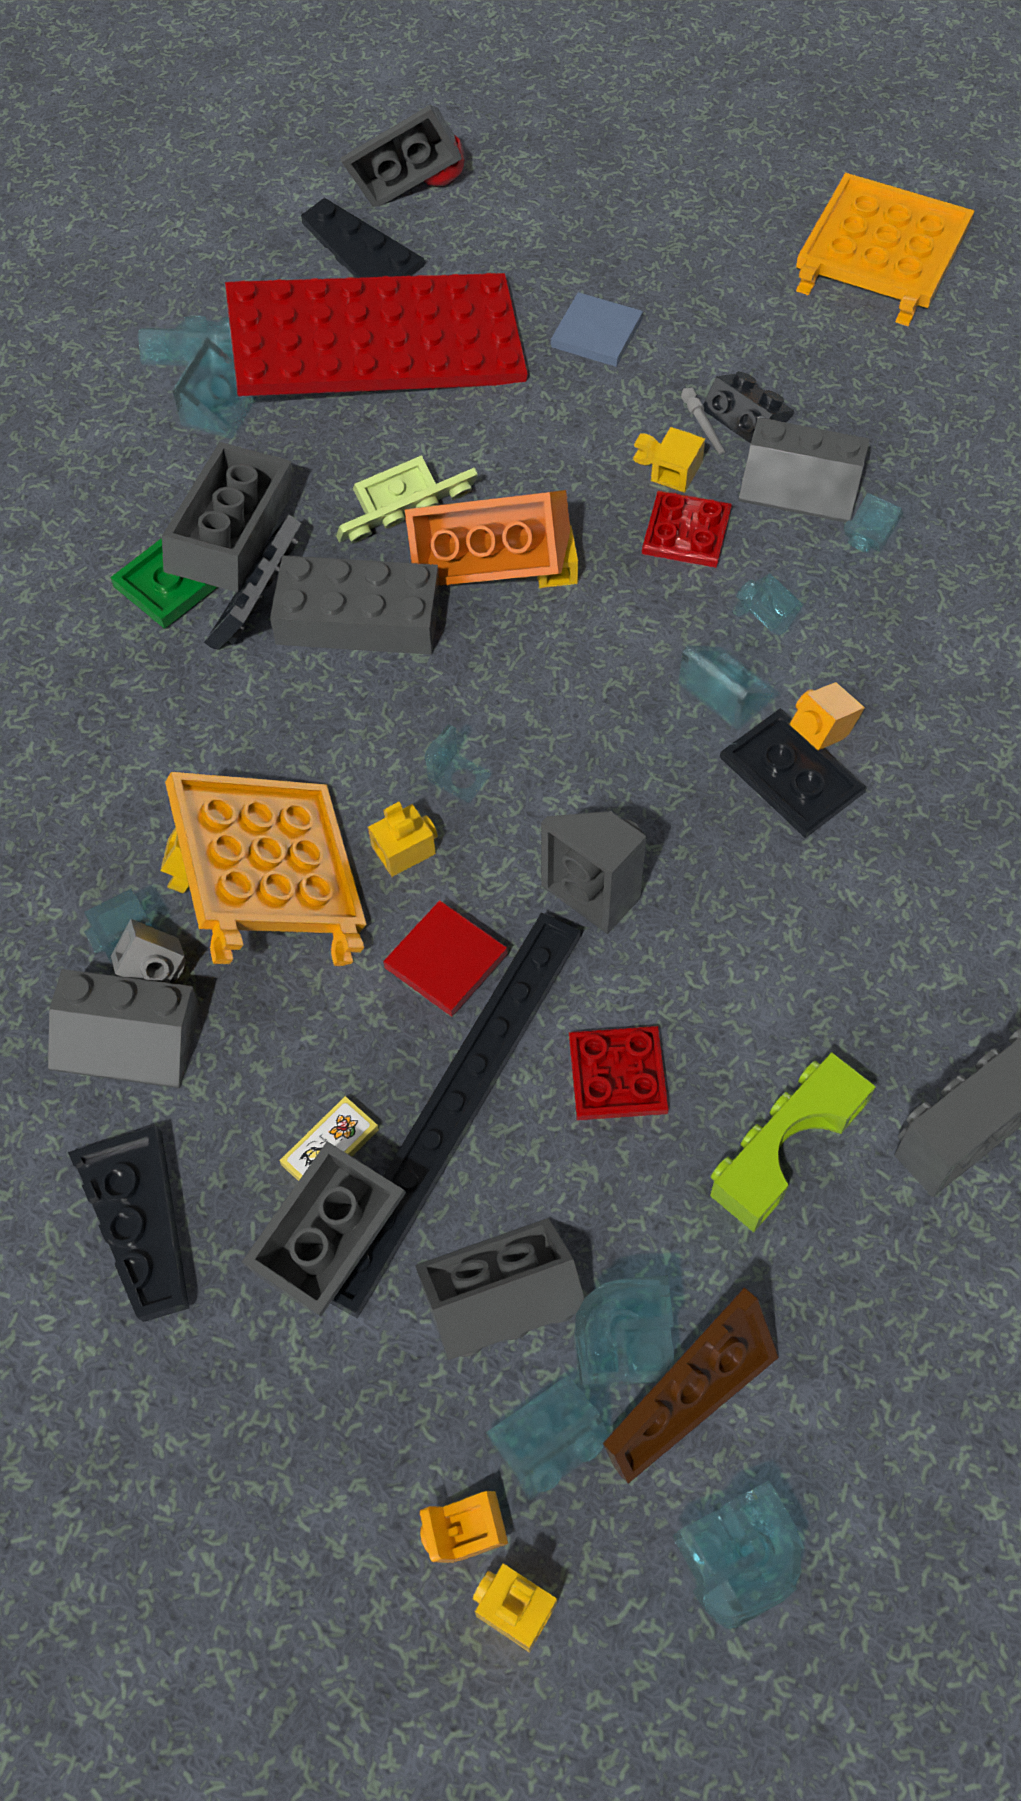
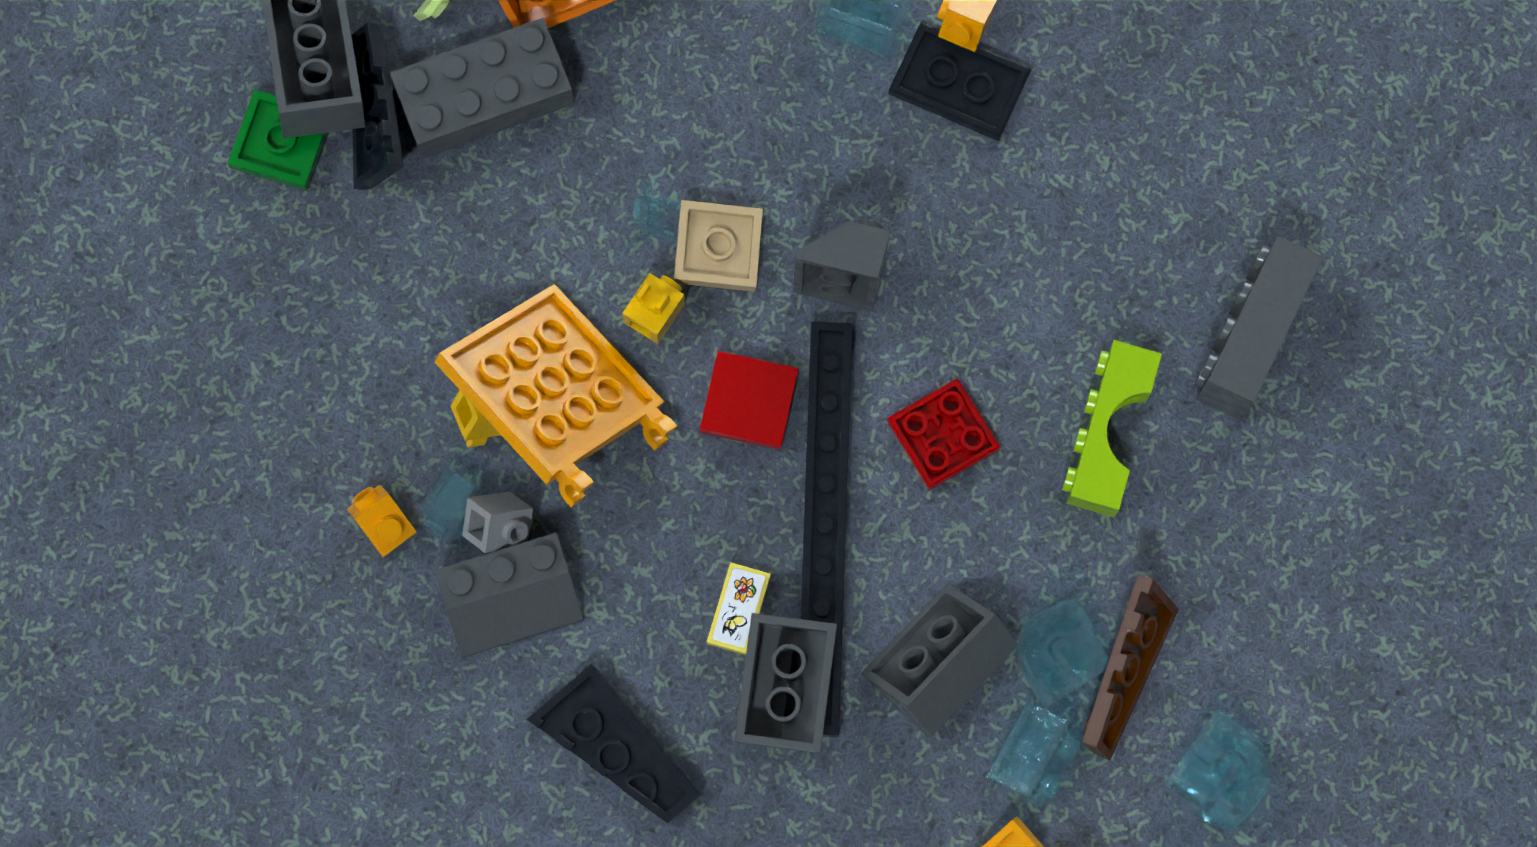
camera: 30 degrees left, 15 degrees up
(51, 914) = (380, 519): none -> light orange bracket
(491, 813) = (718, 245): none -> tan plate

